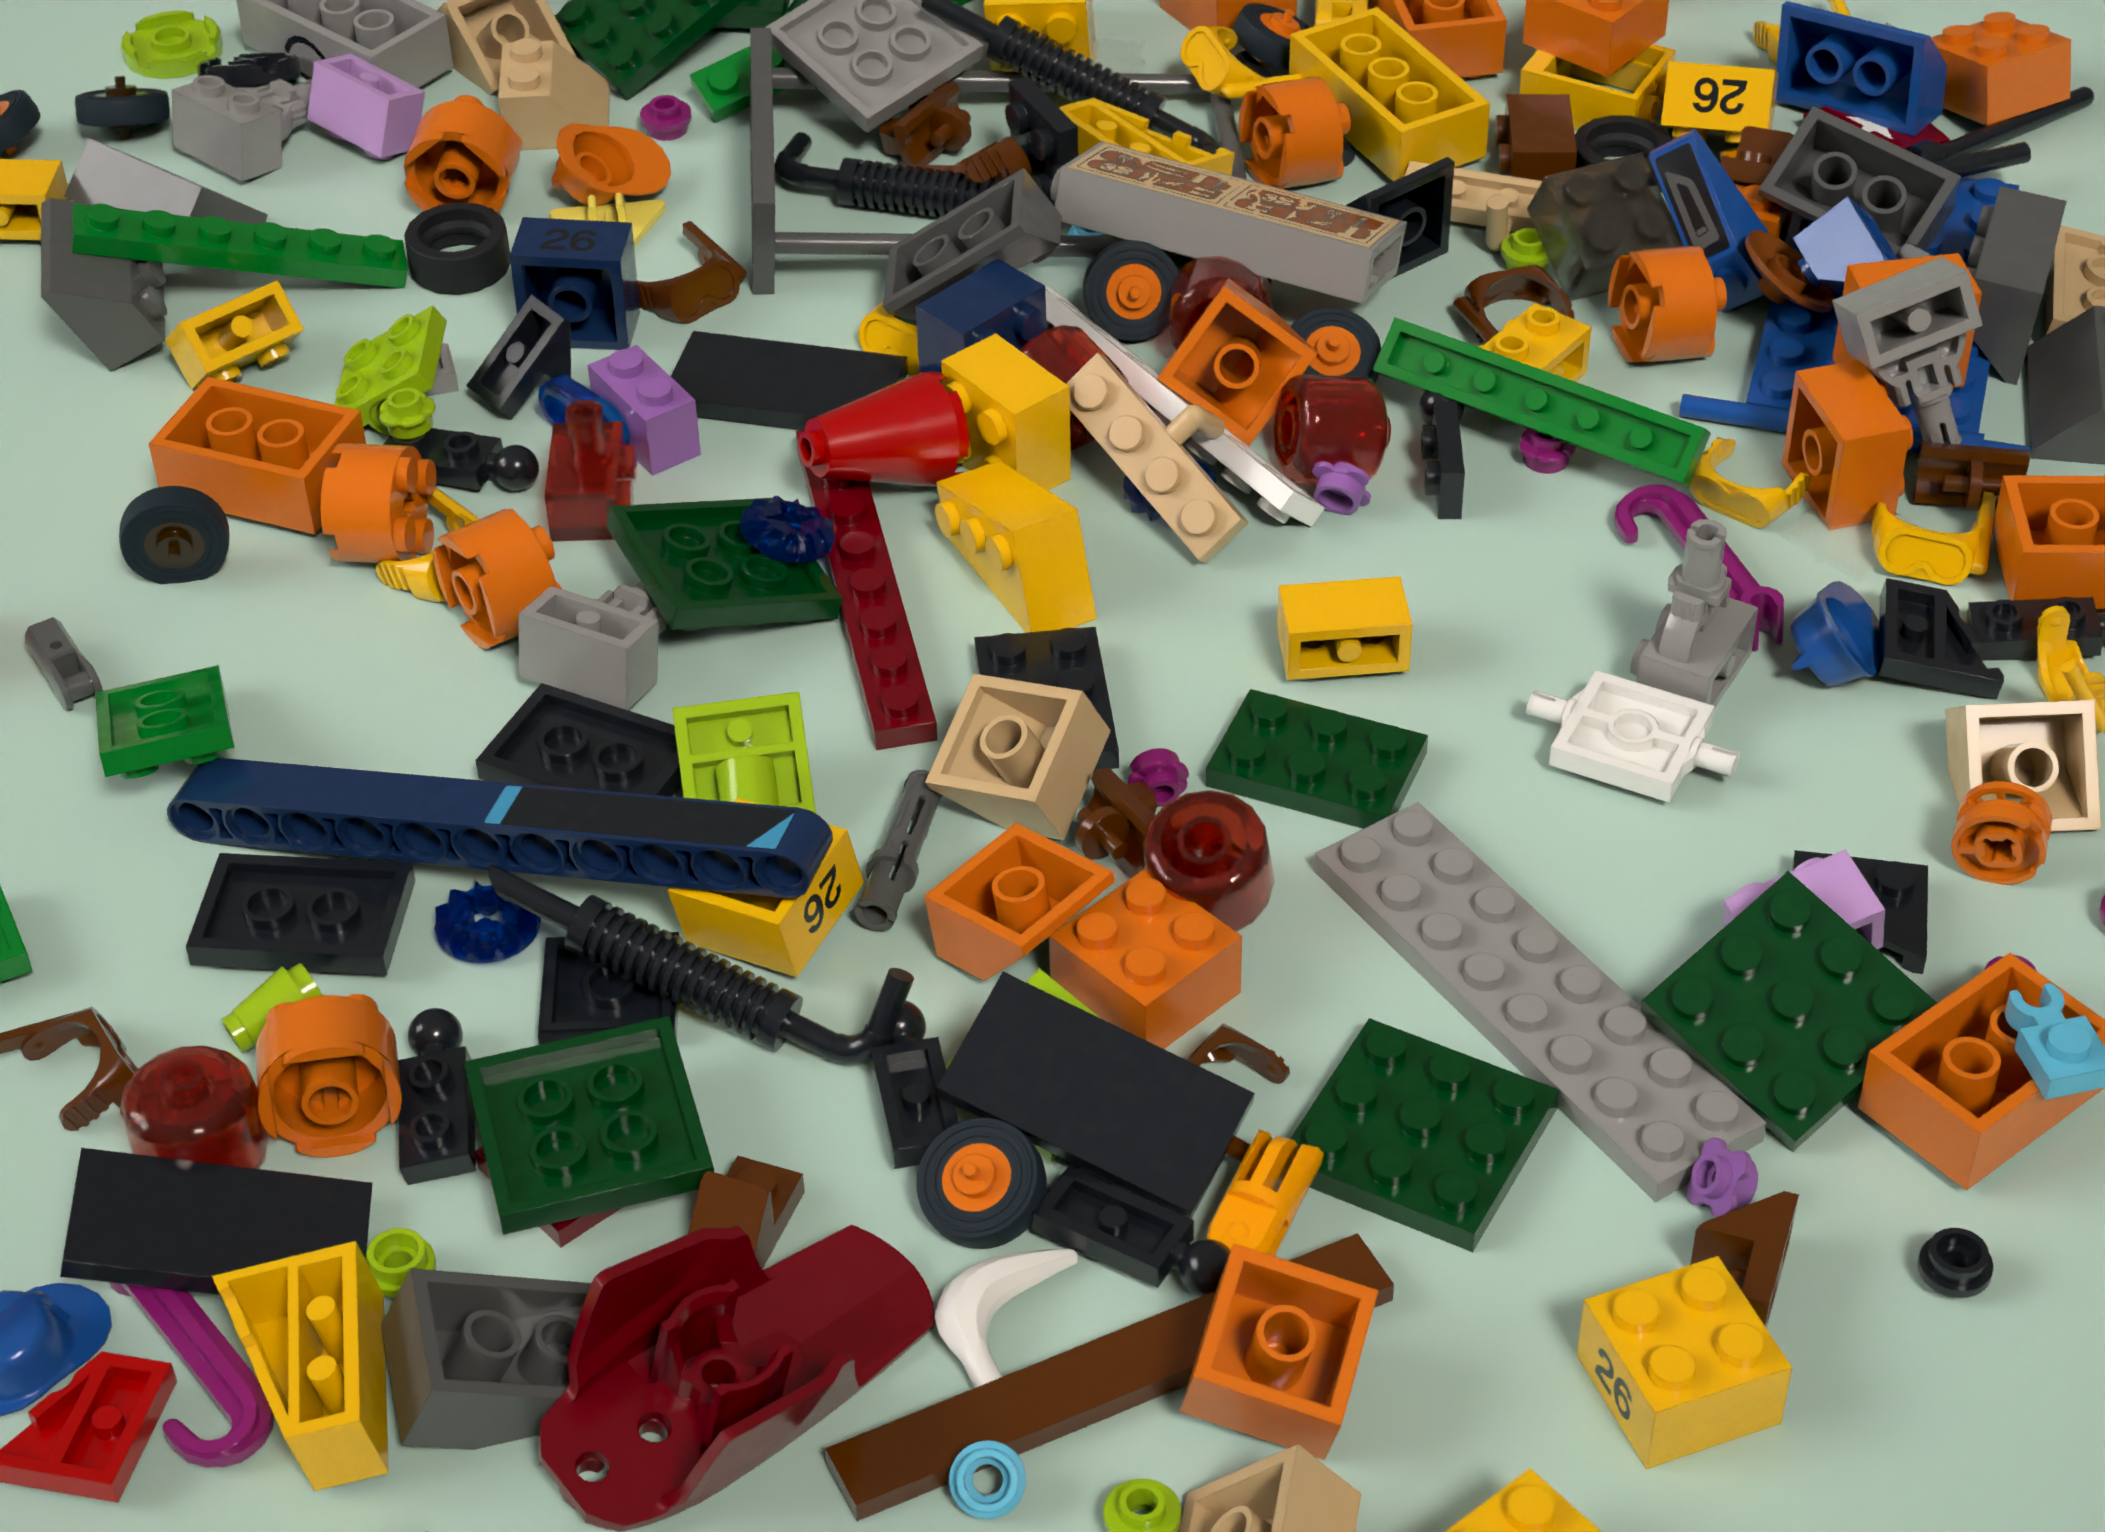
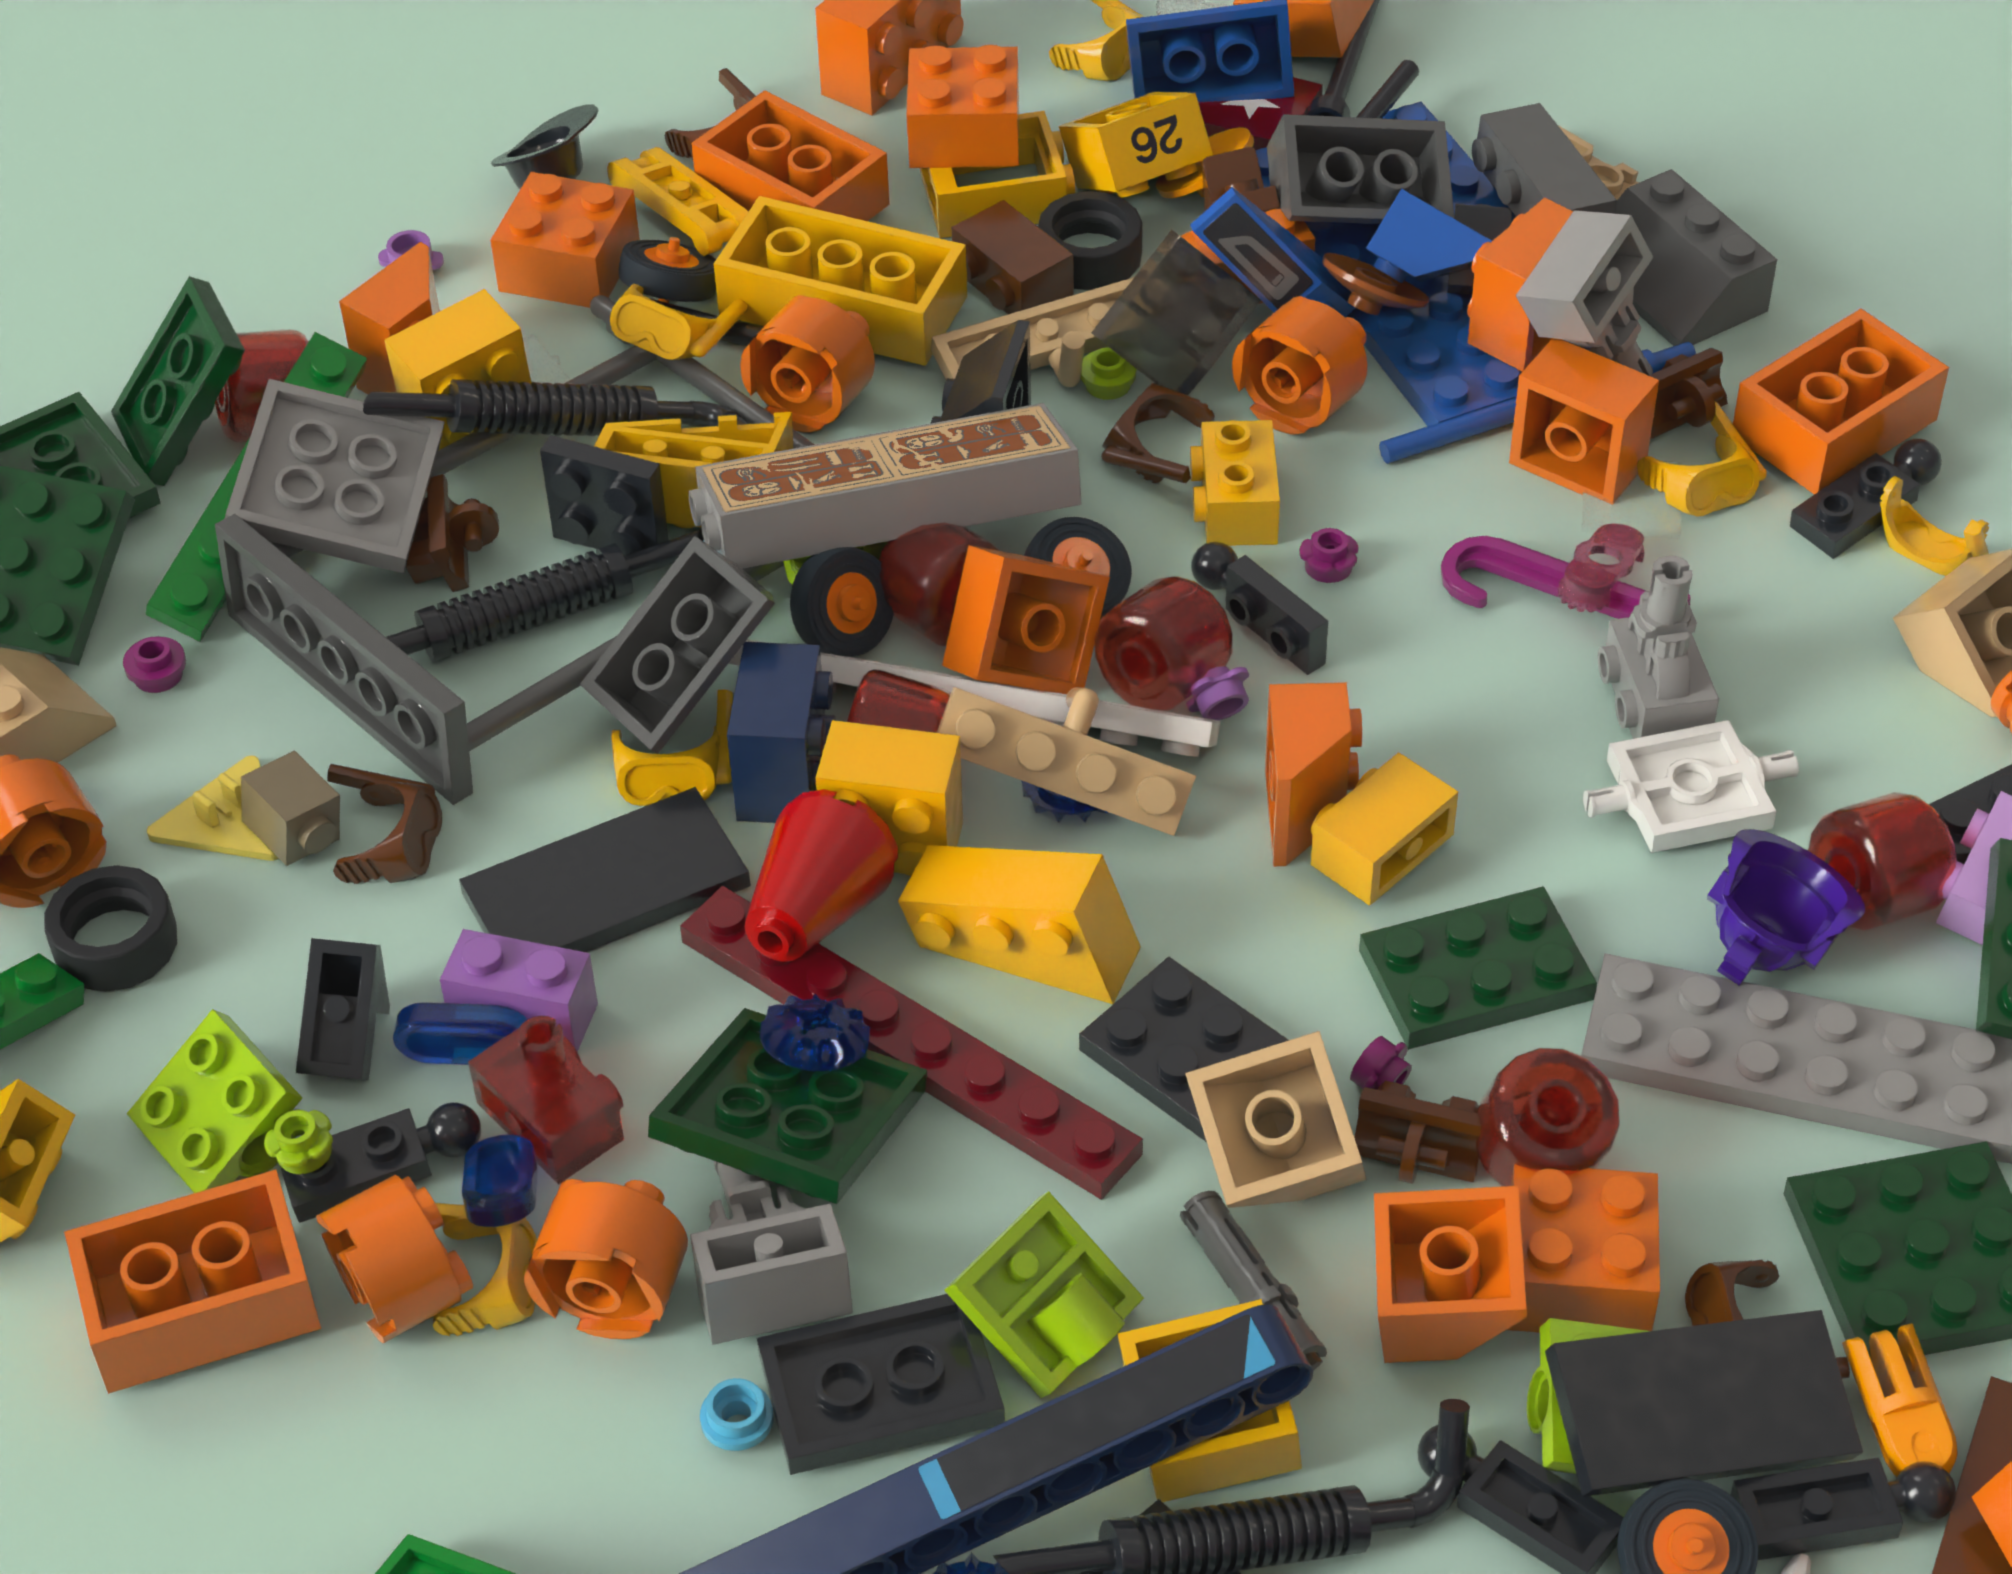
camera: 40 degrees left, 5 degrees up
(174, 535) = (207, 1426): black wheel -> none
(481, 720) = (736, 1398): none -> medium azure plate
(523, 498) = (499, 1181): none -> clear blue tile
(581, 274) = (309, 884): dark blue brick -> none
(608, 162) = (178, 749): orange piece -> none
(647, 217) = (290, 808): none -> dark tan brick
(995, 160) = (561, 535): reddish brown helmet -> none
(1322, 535) = (1307, 759): none -> orange slope
(1543, 402) = (1312, 516): green plate -> none
(1576, 832) = (1778, 905): none -> dark purple helmet
(1708, 852) = (1890, 852): none -> clear red head
(1745, 504) = (1509, 519): yellow helmet -> none
(1780, 547) = (1589, 583): none -> clear pink piece
(1837, 636) = (1745, 608): blue piece -> none
(1929, 642) = (1800, 562): black wing -> none

